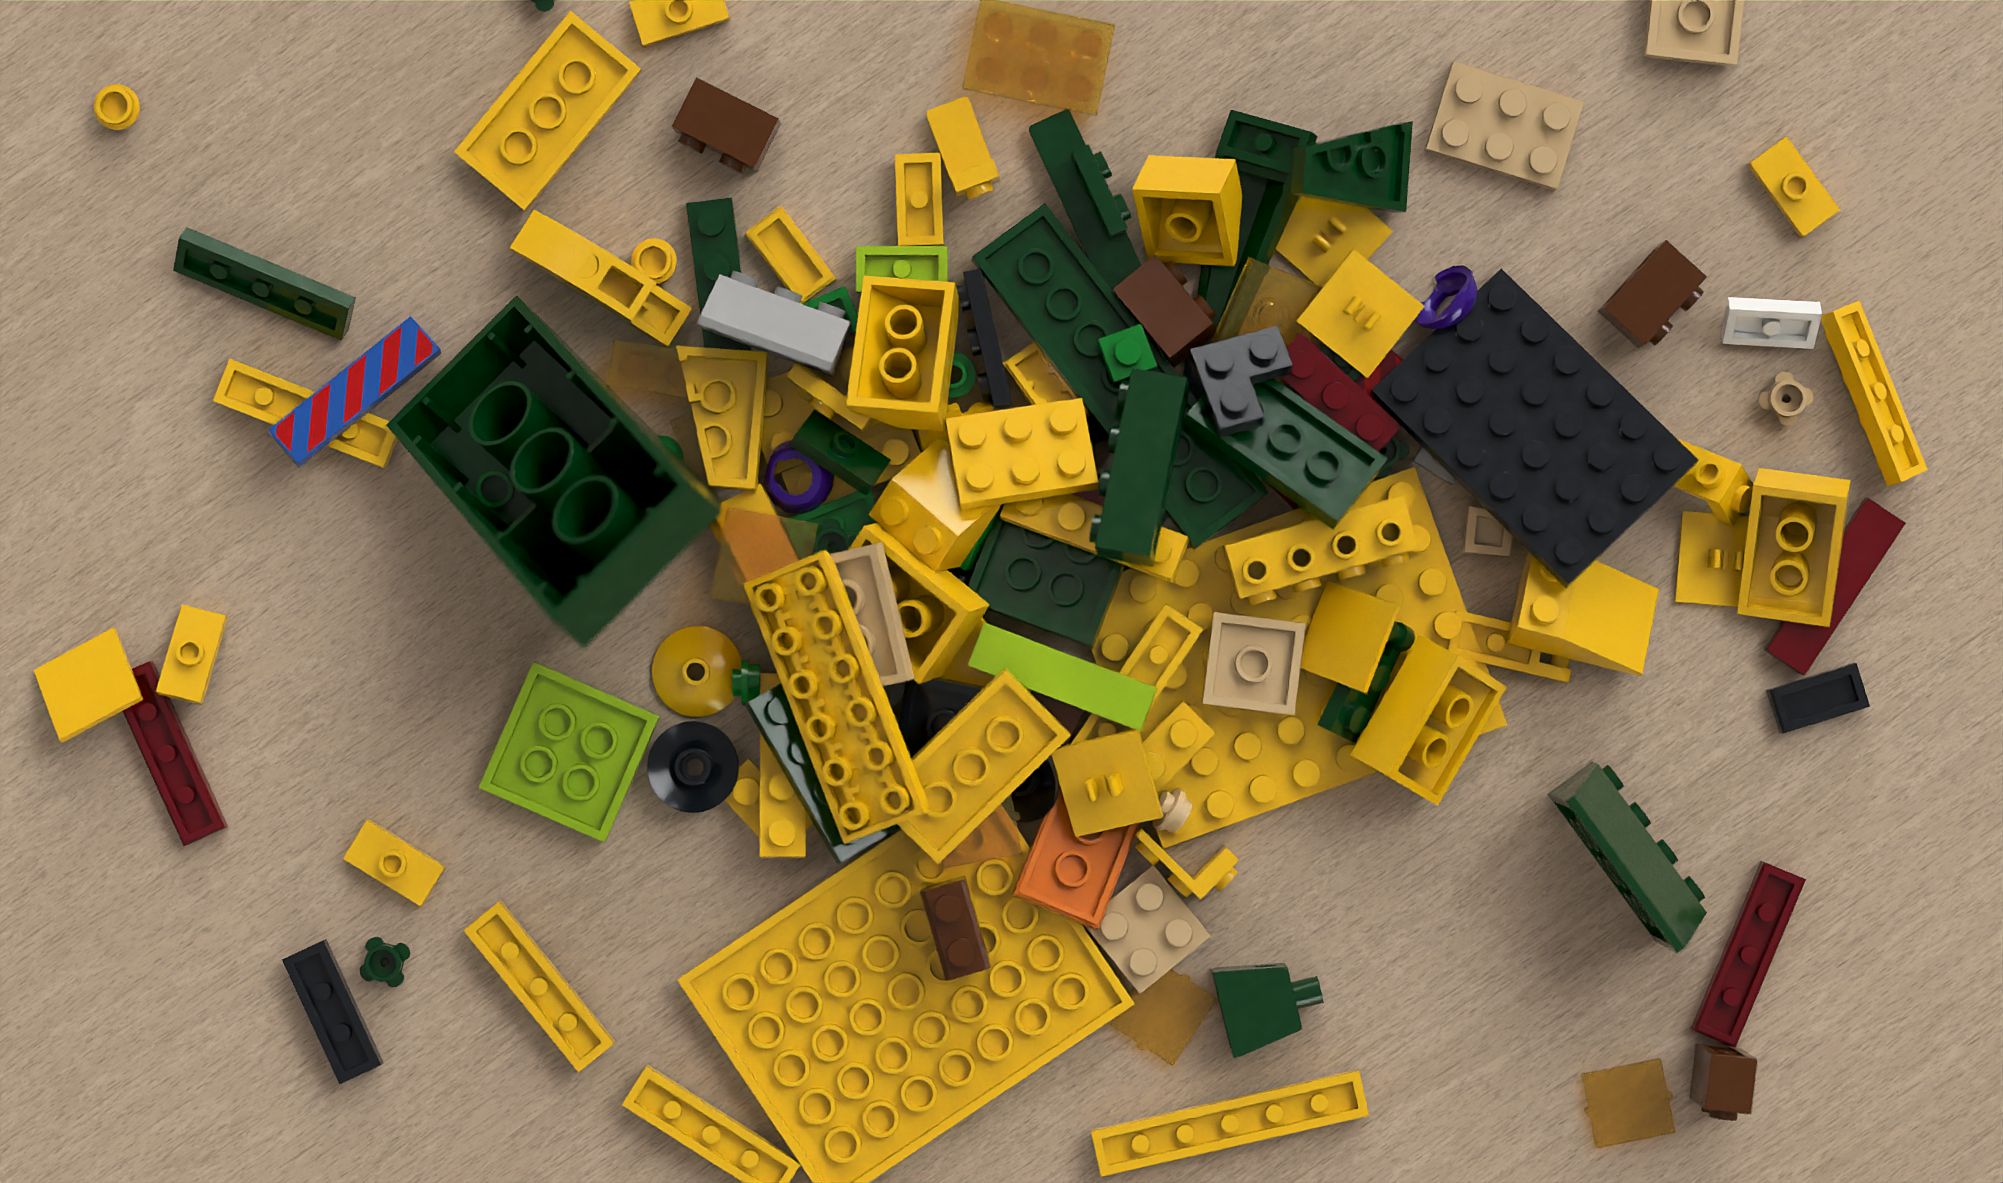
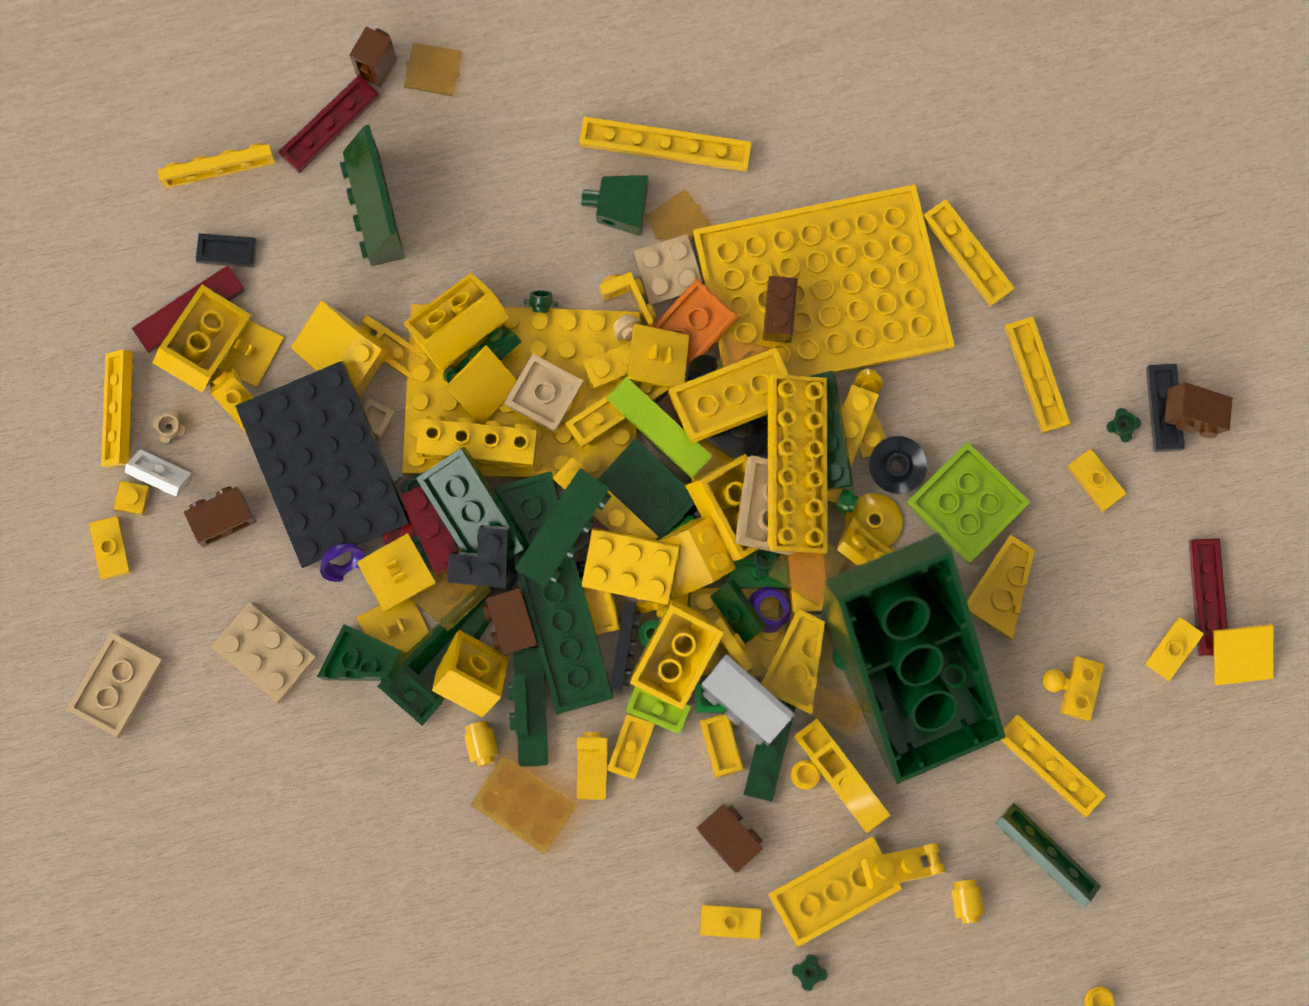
camera: 160 degrees left, 10 degrees down
(281, 1022) = (1198, 410): none -> reddish brown brick
(307, 543) = (1079, 687): none -> yellow plate
(354, 172) = (967, 901): none -> yellow brick
(354, 391) = (1017, 765): blue tile -> none
(465, 182) = (902, 866): none -> yellow plate
(473, 643) = (1002, 587): none -> yellow wing
(690, 607) = (860, 545): none -> yellow plate
(784, 875) = (869, 380): none -> yellow plate
(1126, 351) = (544, 601): green plate -> none
(1135, 118) = (481, 743): none -> yellow brick
(1316, 804) = (540, 301): none -> dark green plate
(1793, 272) = (131, 498): none -> yellow plate
(1903, 810) = (208, 167): none -> yellow plate

